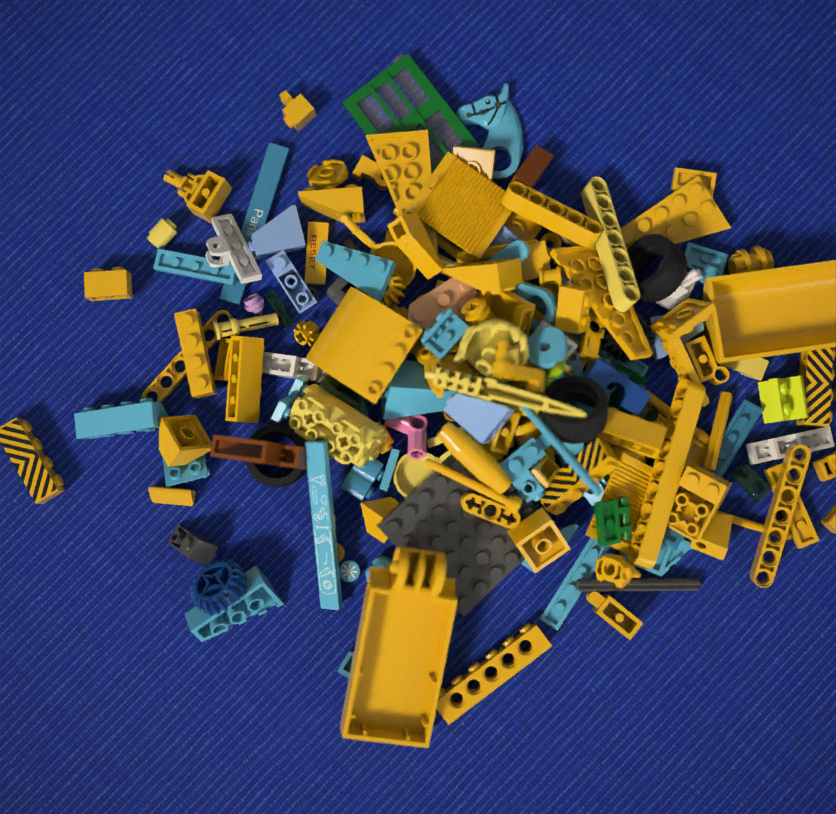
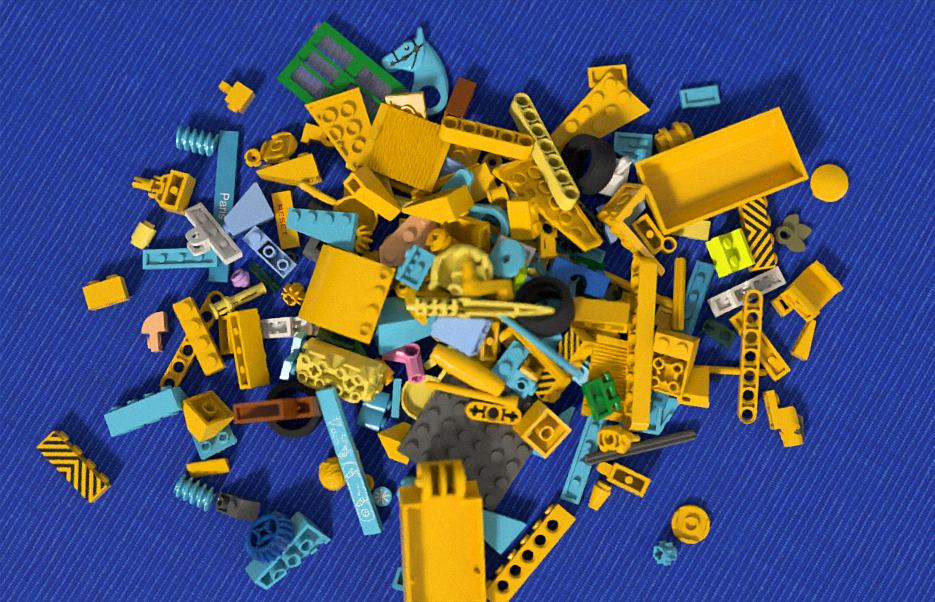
camera: 10 degrees left, 0 degrees up
(151, 332) = (154, 326): none -> light nougat brick
(151, 519) = (194, 492): none -> medium azure piece
(242, 149) = (196, 142): none -> medium azure piece
(293, 179) = (248, 156): none -> yellow plate
(301, 535) = (331, 474): none -> yellow hair
(468, 638) = (500, 529): none -> medium azure slope
(558, 462) = (547, 362): none -> yellow axle
(582, 625) = (599, 494): none -> yellow cone
(639, 705) = (665, 553): none -> medium azure gear
(672, 680) = (690, 524): none -> yellow tile
(786, 227) = (699, 97): none -> medium azure tile
(800, 591) = (784, 419): none -> yellow plate

